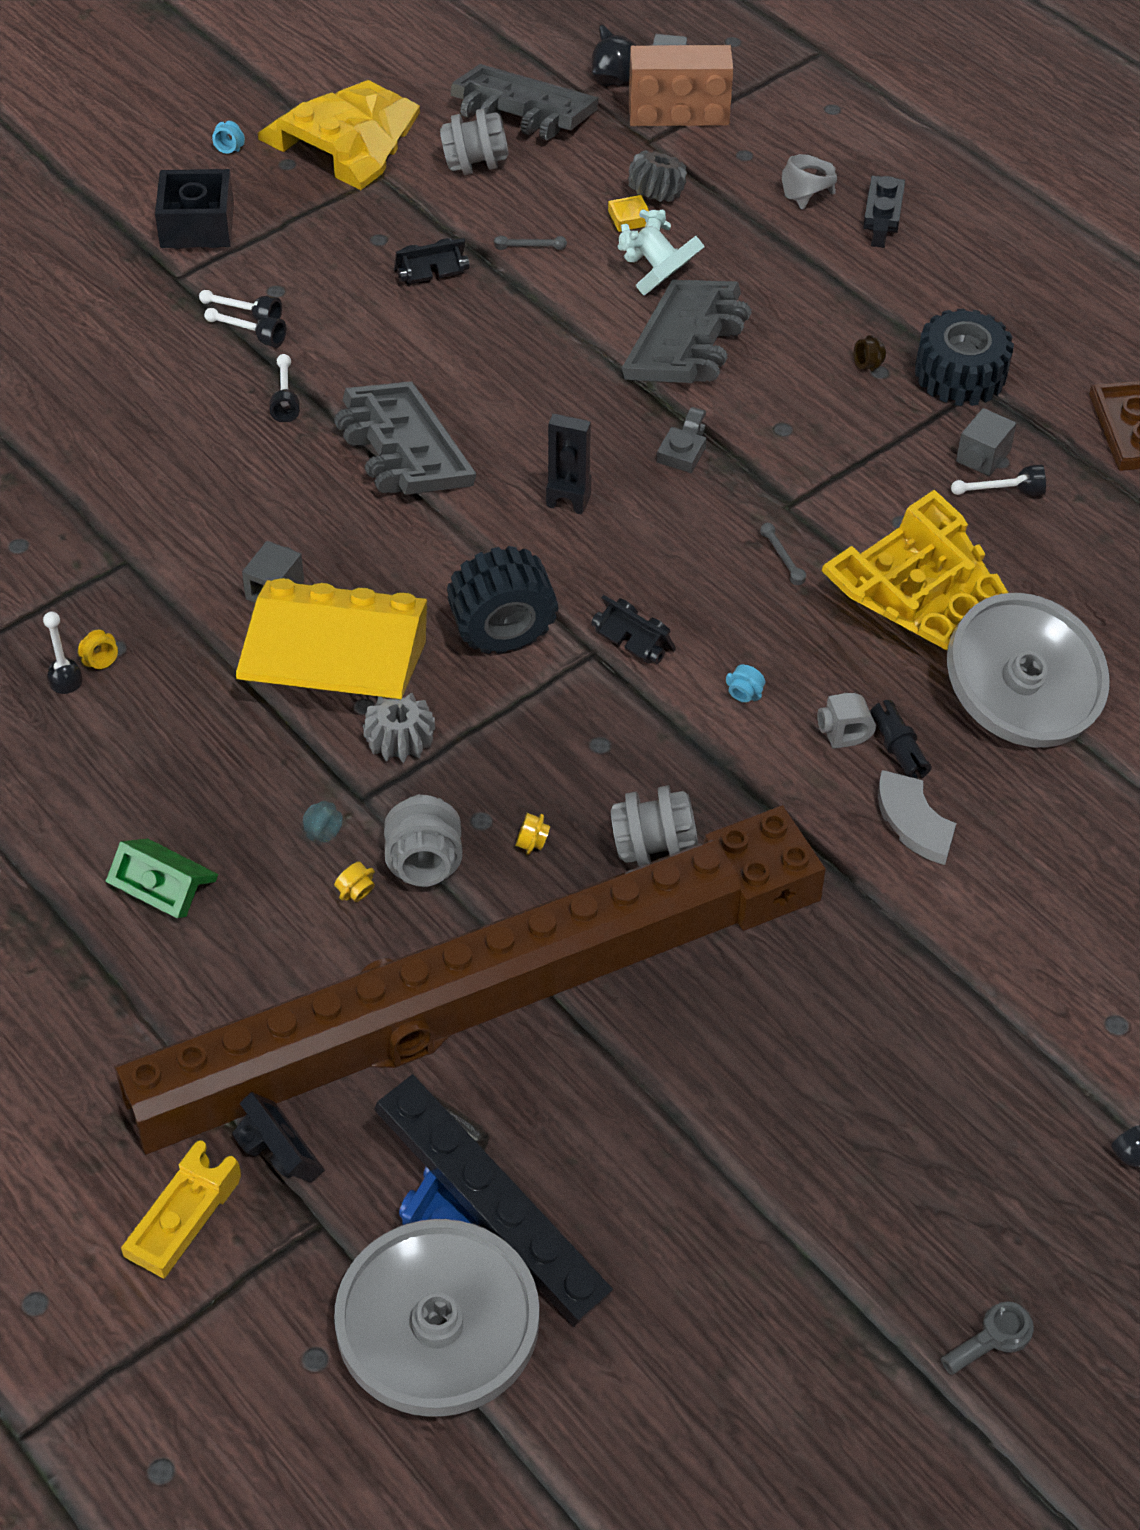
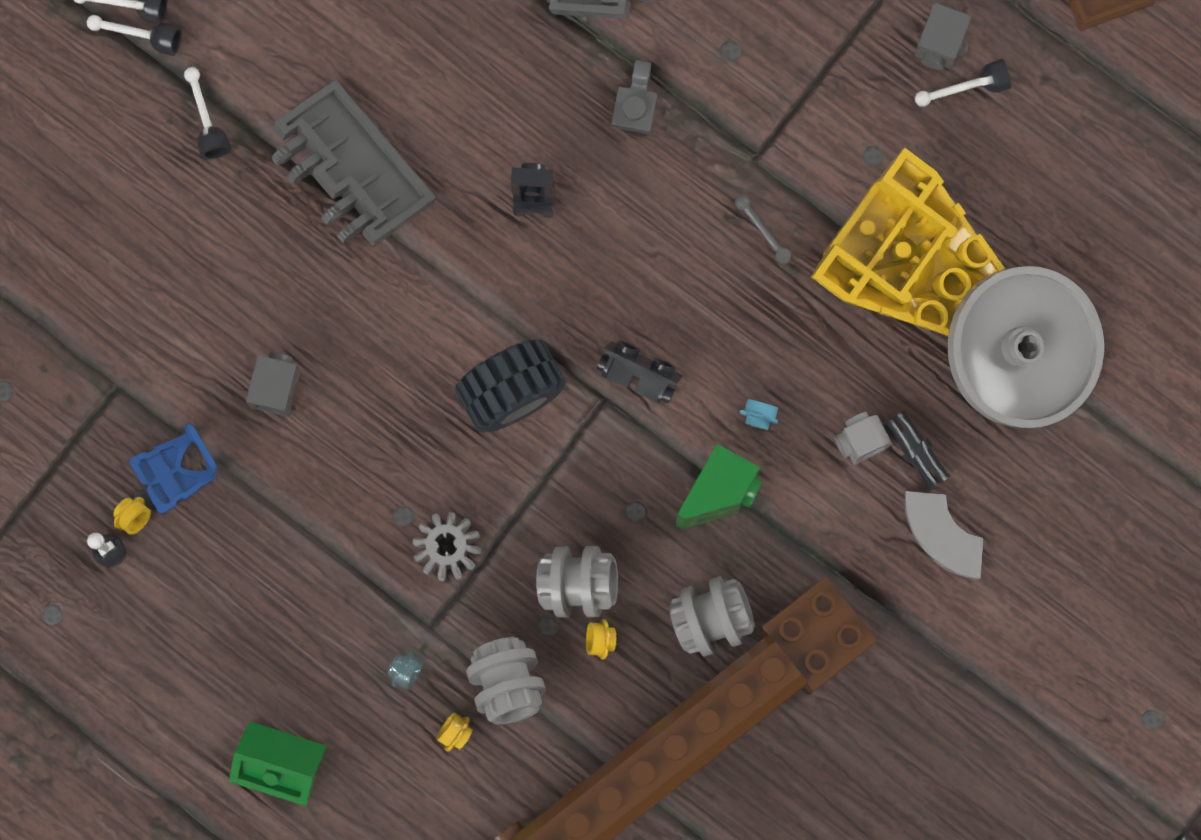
camera: 10 degrees left, 30 degrees up
(143, 628) = (163, 471): none -> blue piece
(334, 638) = (359, 469): yellow slope -> none
(526, 772) = (577, 581): none -> light grey piece
(686, 721) = (720, 489): none -> green slope

